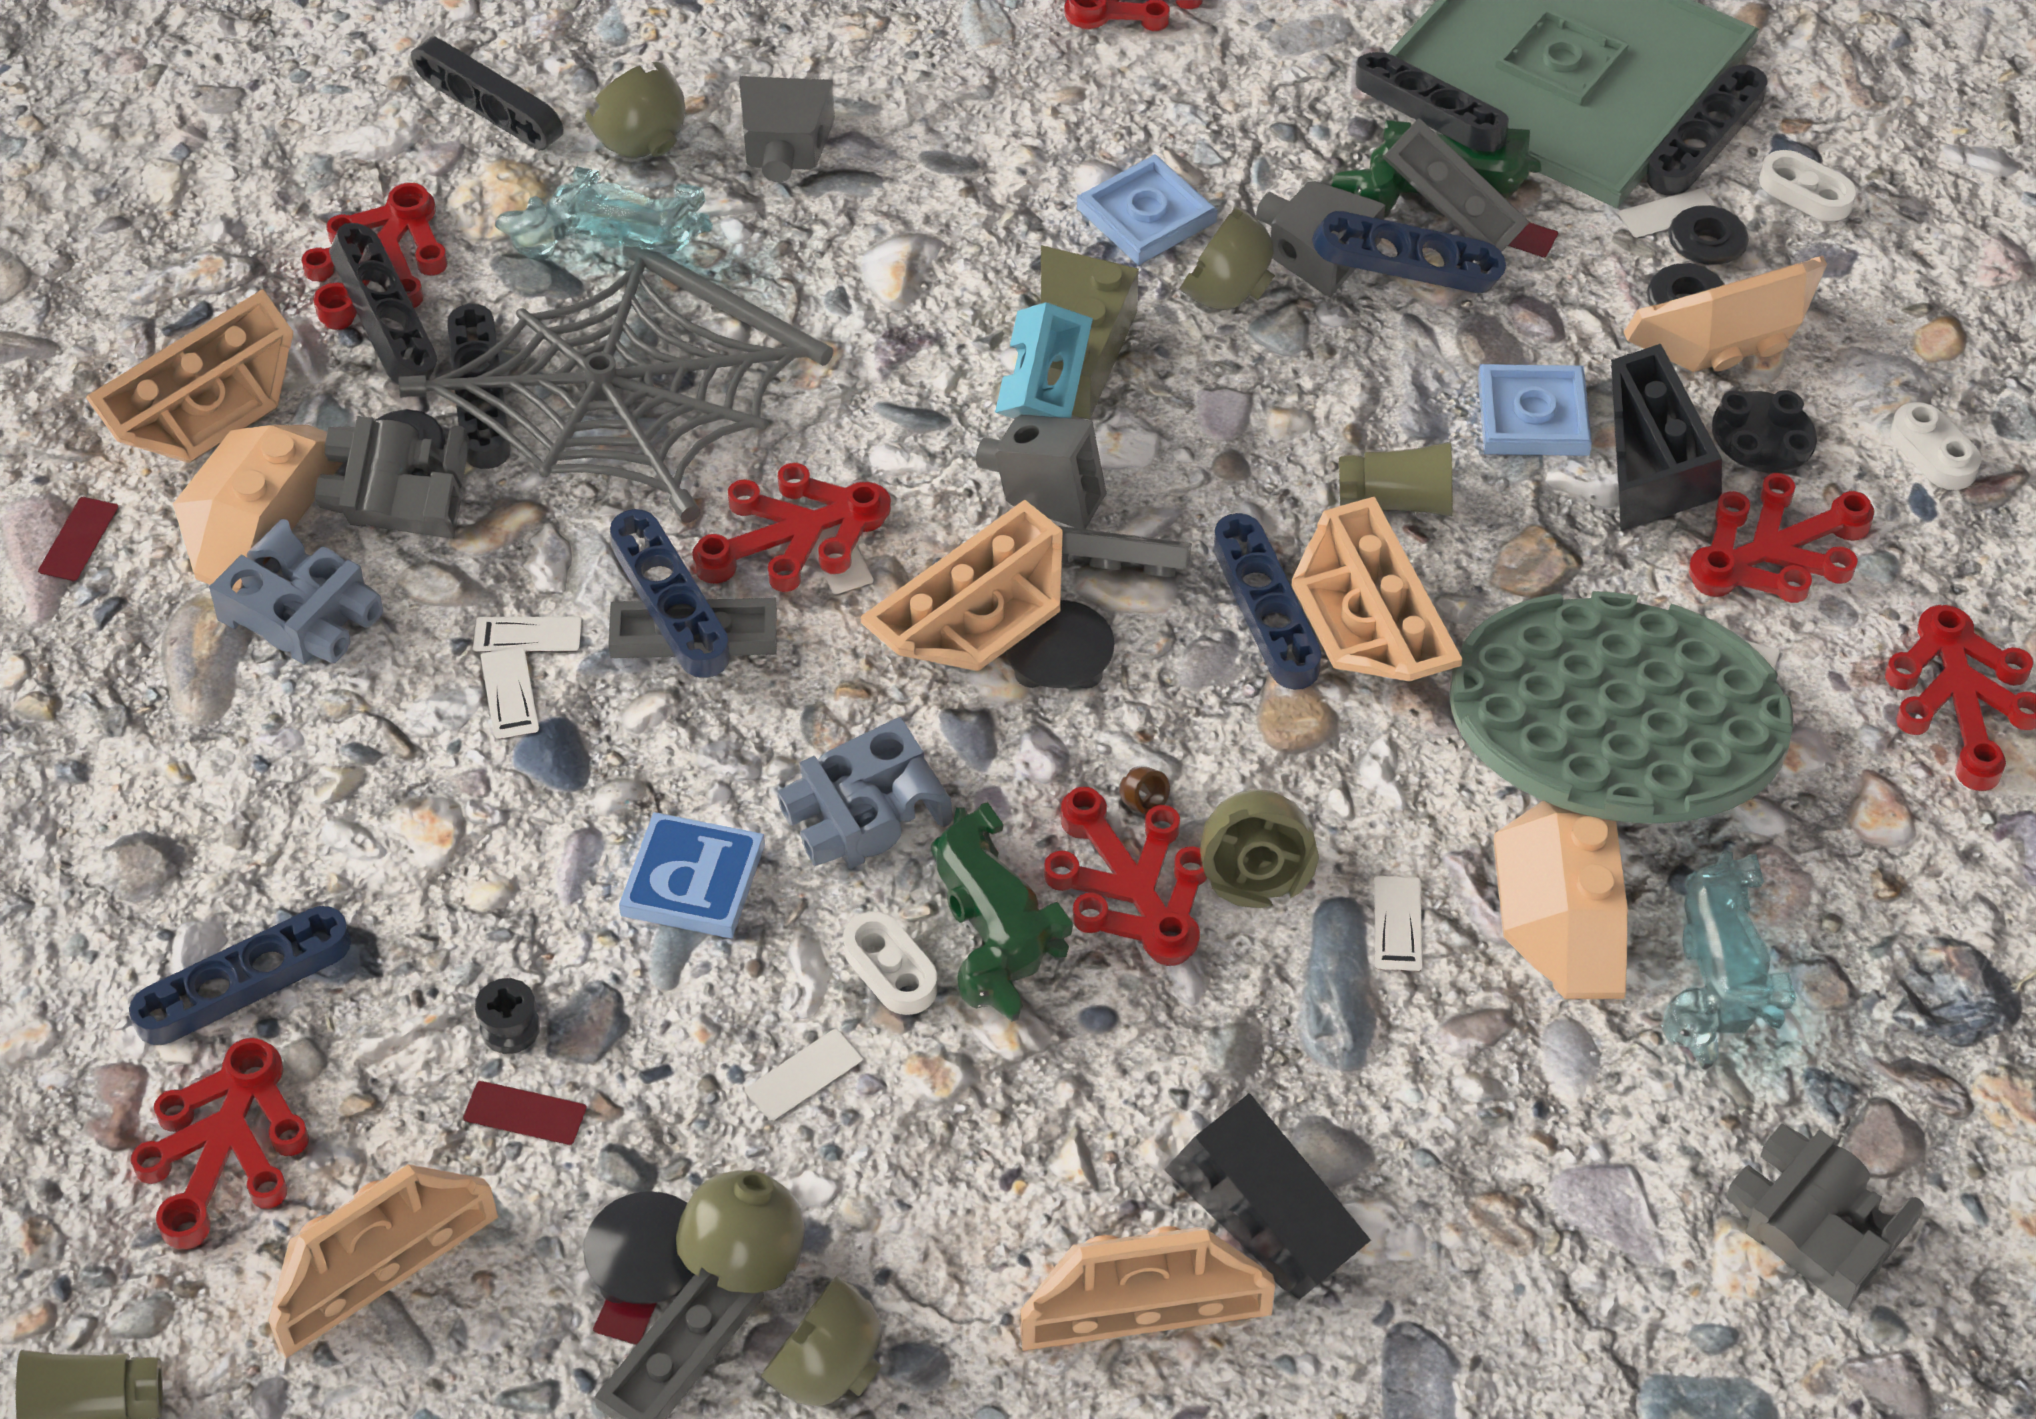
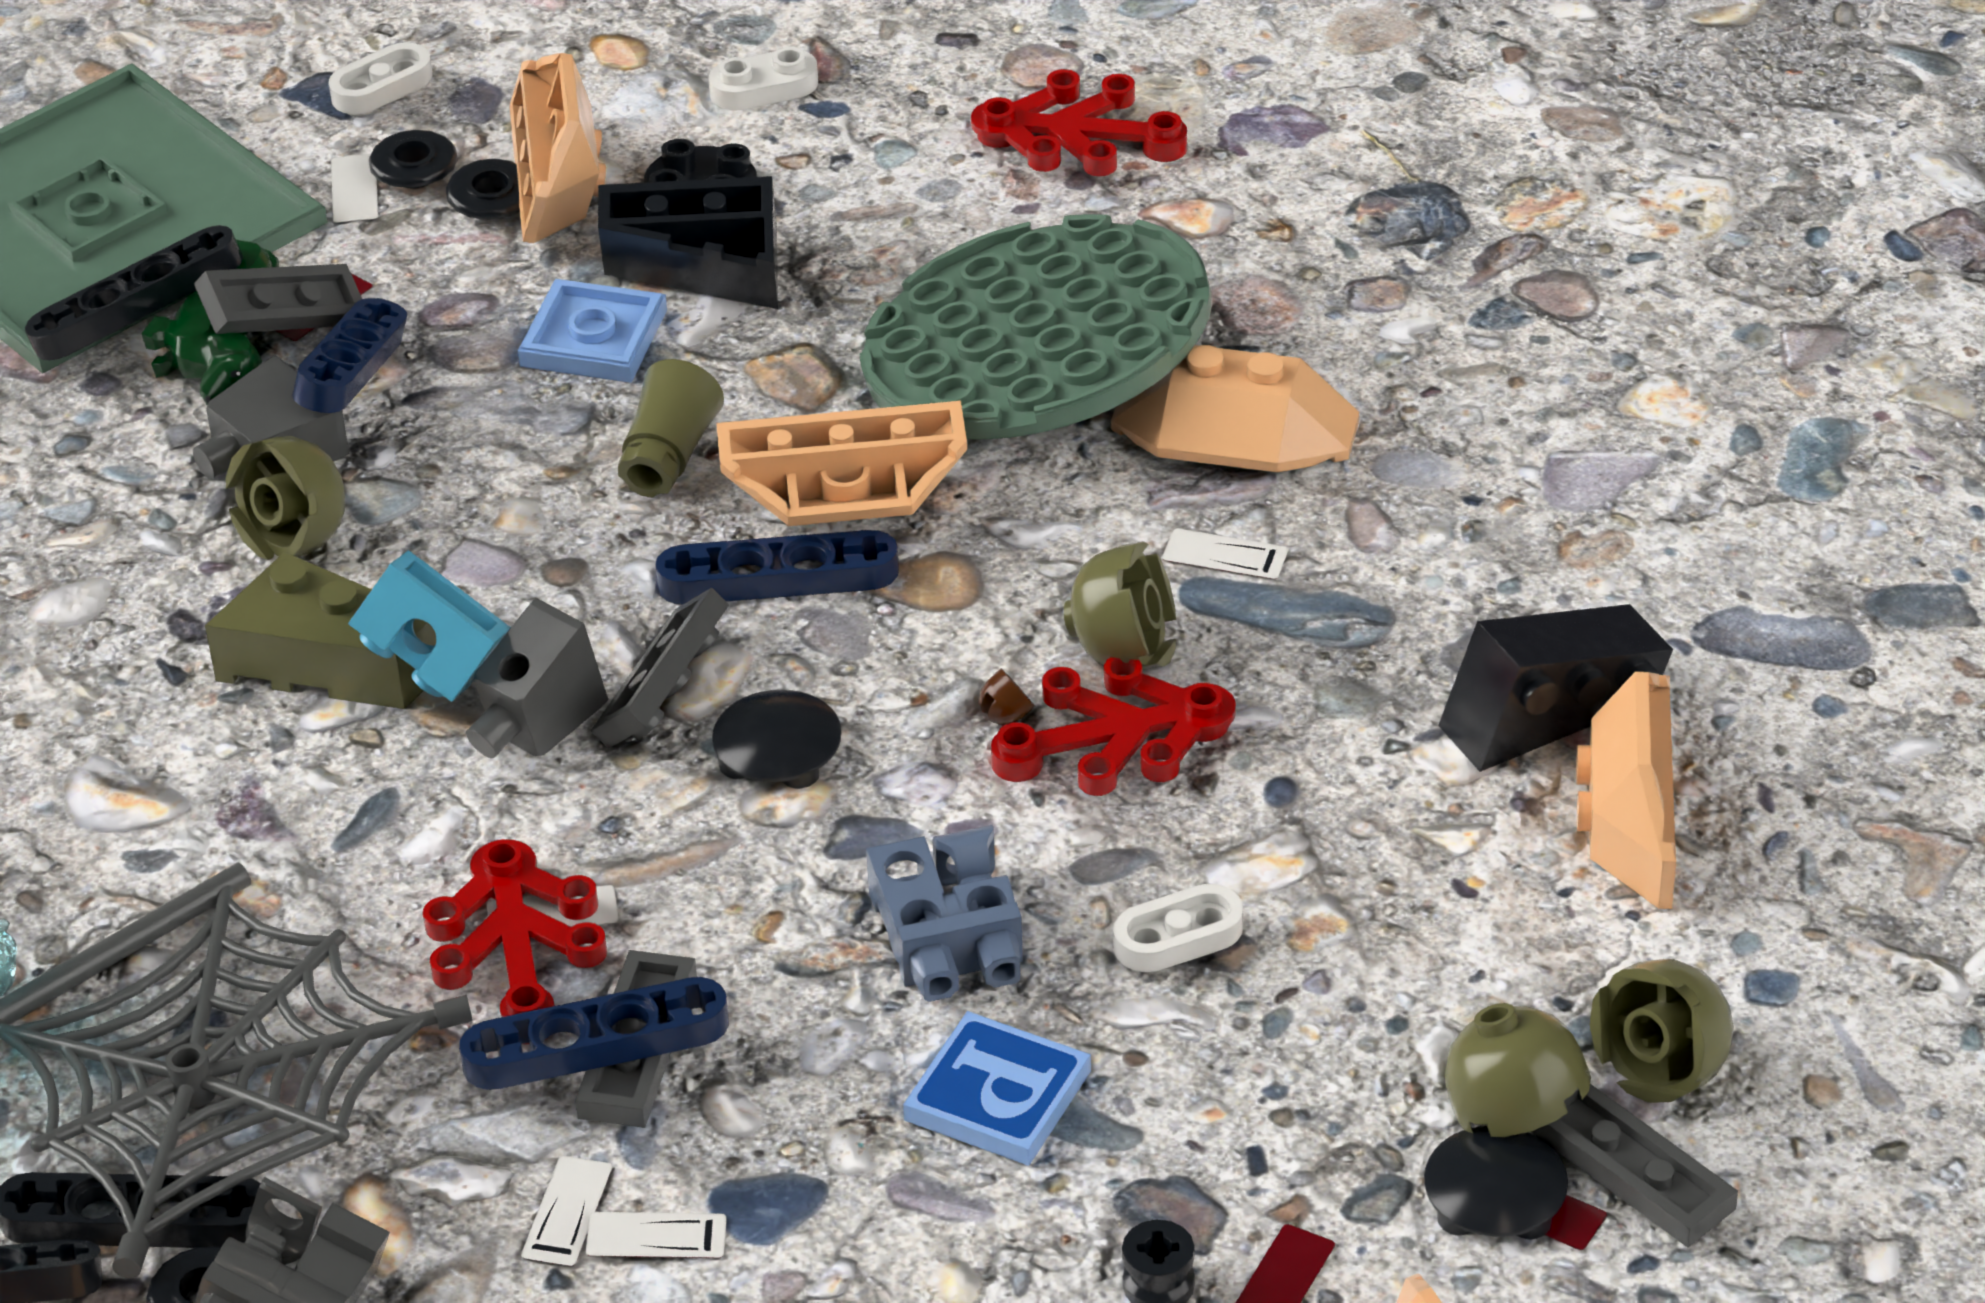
camera: 75 degrees left, 10 degrees down
(803, 1074) = (1292, 1033): white sticker -> none
(977, 595) = (709, 760): light nougat wedge -> none
(999, 909) = (1141, 825): dark green animal -> none
(1146, 209) = (143, 568): light blue tile -> none
(1701, 126) = (265, 125): black beam -> none
(1720, 569) = (862, 244): red plant -> none
(1730, 961) = (1352, 328): clear light blue animal -> none
(1803, 1208) = (1651, 332): dark grey hips -> none

